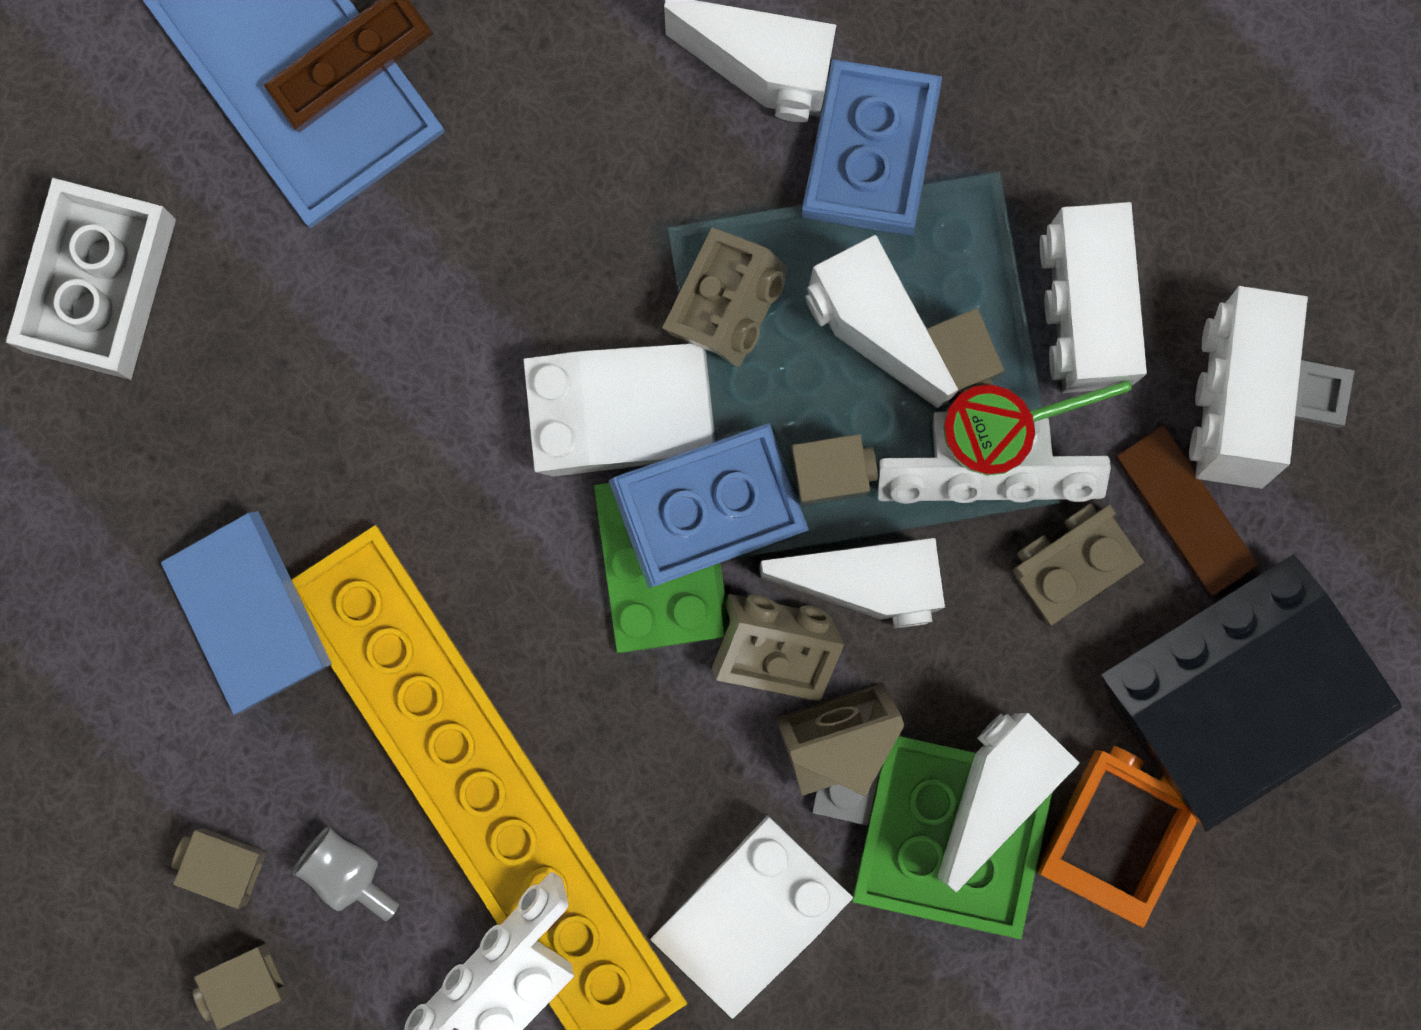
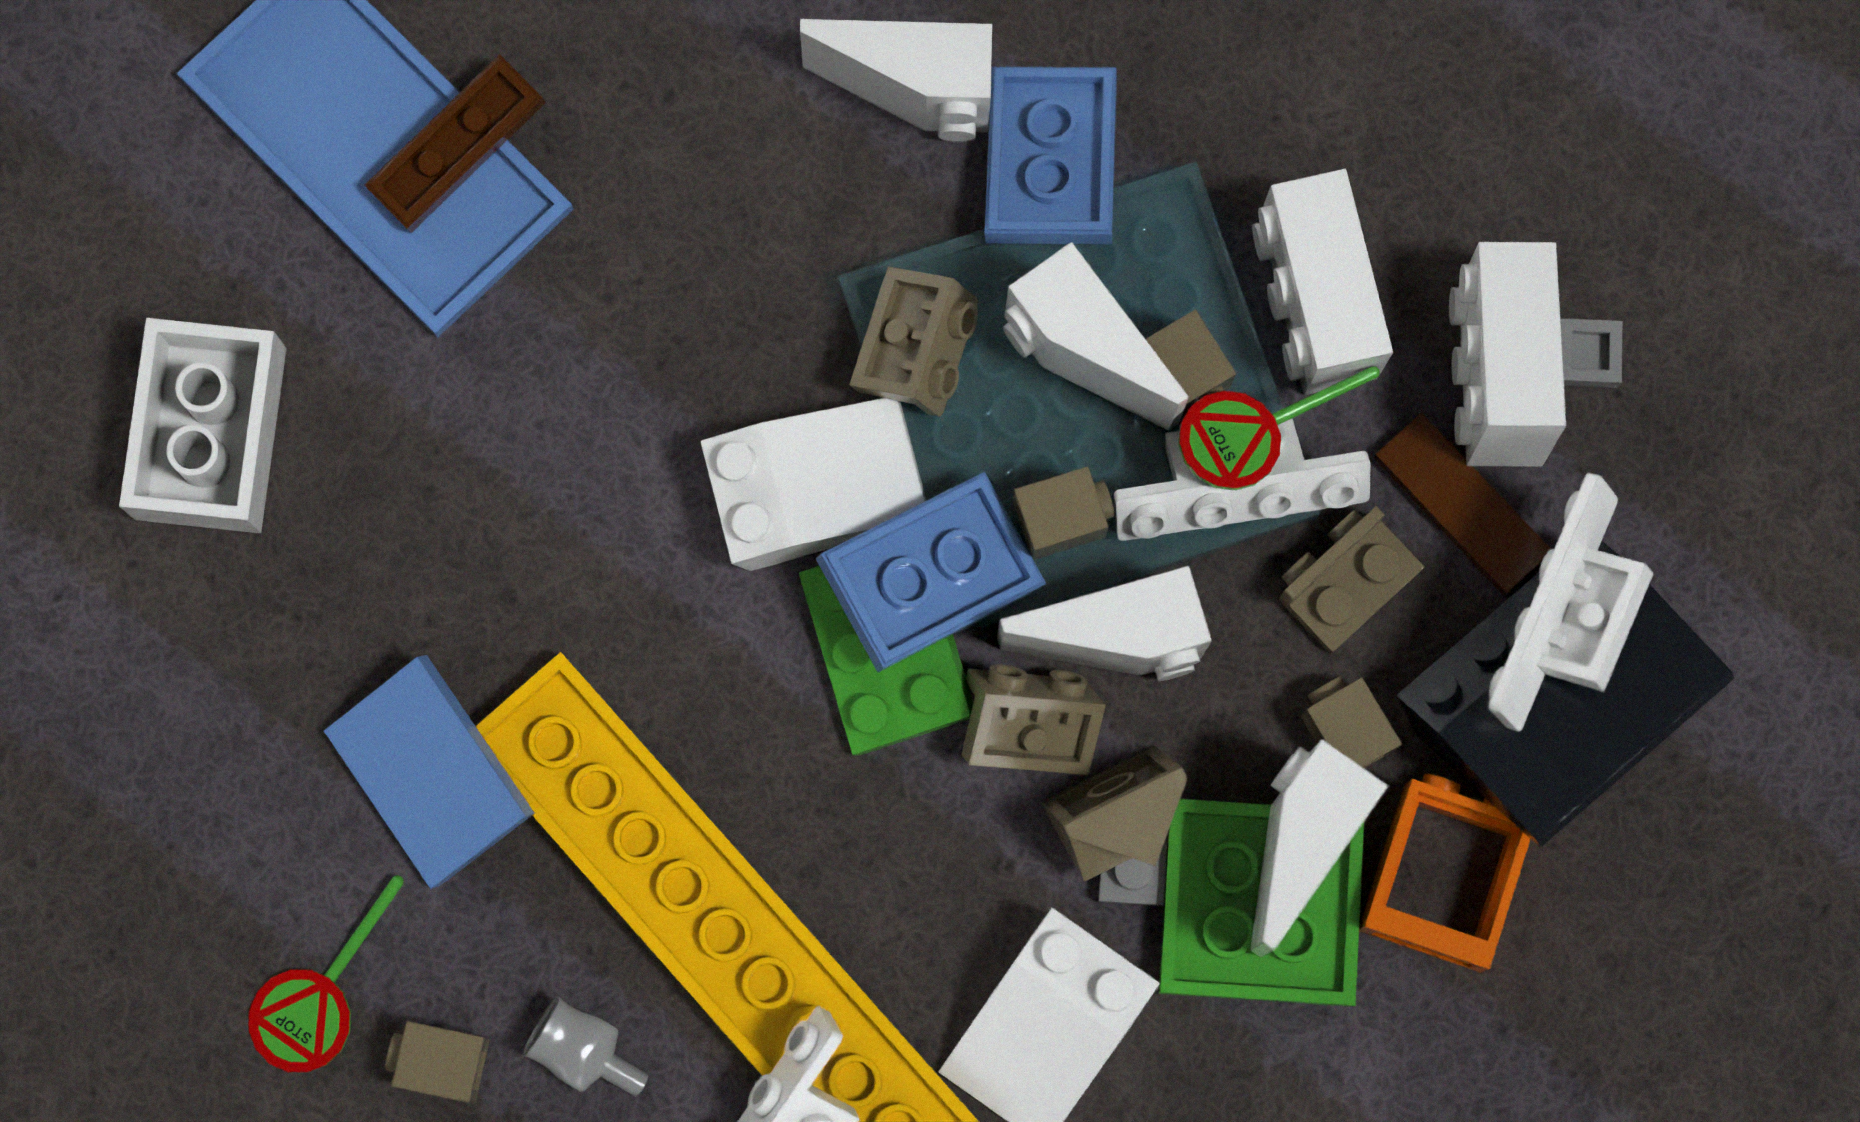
camera: 10 degrees left, 5 degrees down
(109, 807) = (304, 1016): none -> piece
(1055, 693) = (1350, 721): none -> dark tan brick
(1273, 630) = (1577, 611): none -> white bracket

